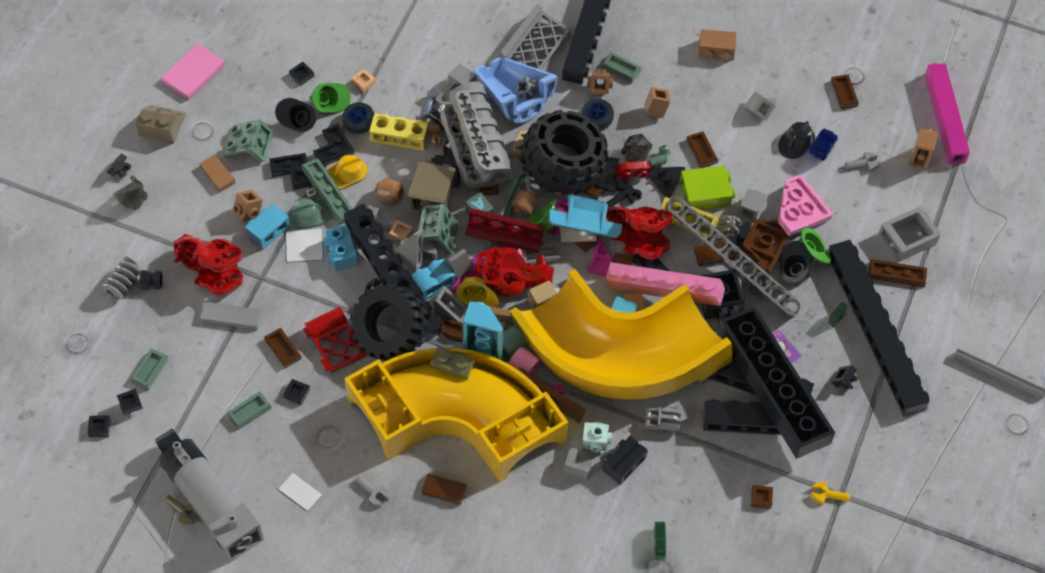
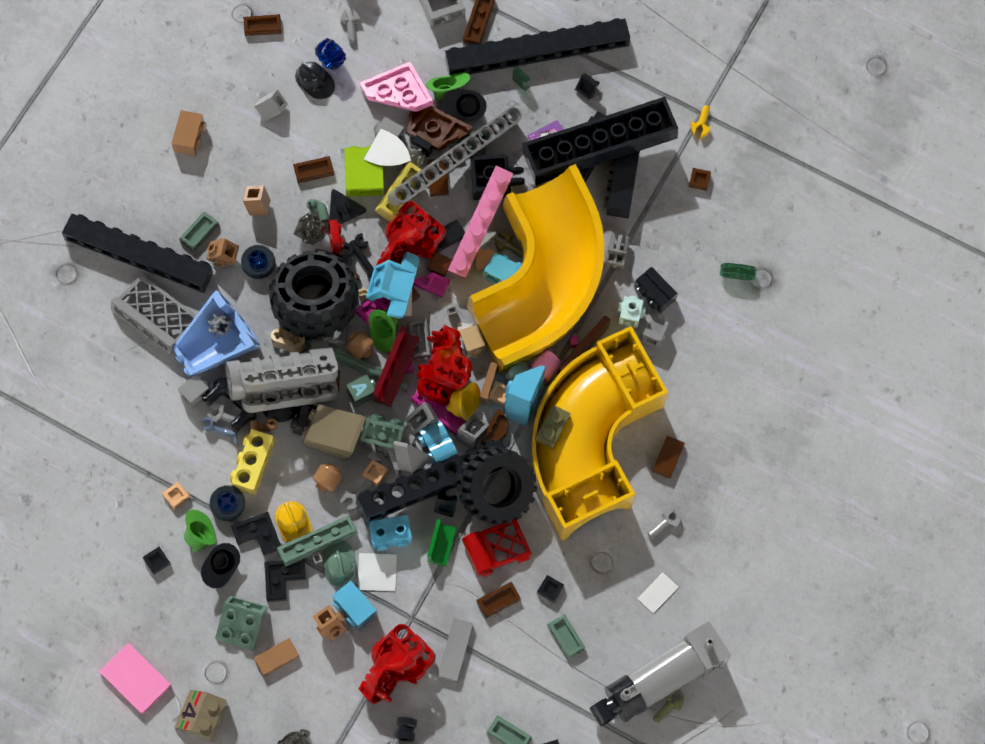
camera: 85 degrees left, 10 degrees up
(334, 290) = (441, 544): none -> green panel
(729, 200) = (387, 150): none -> white sticker

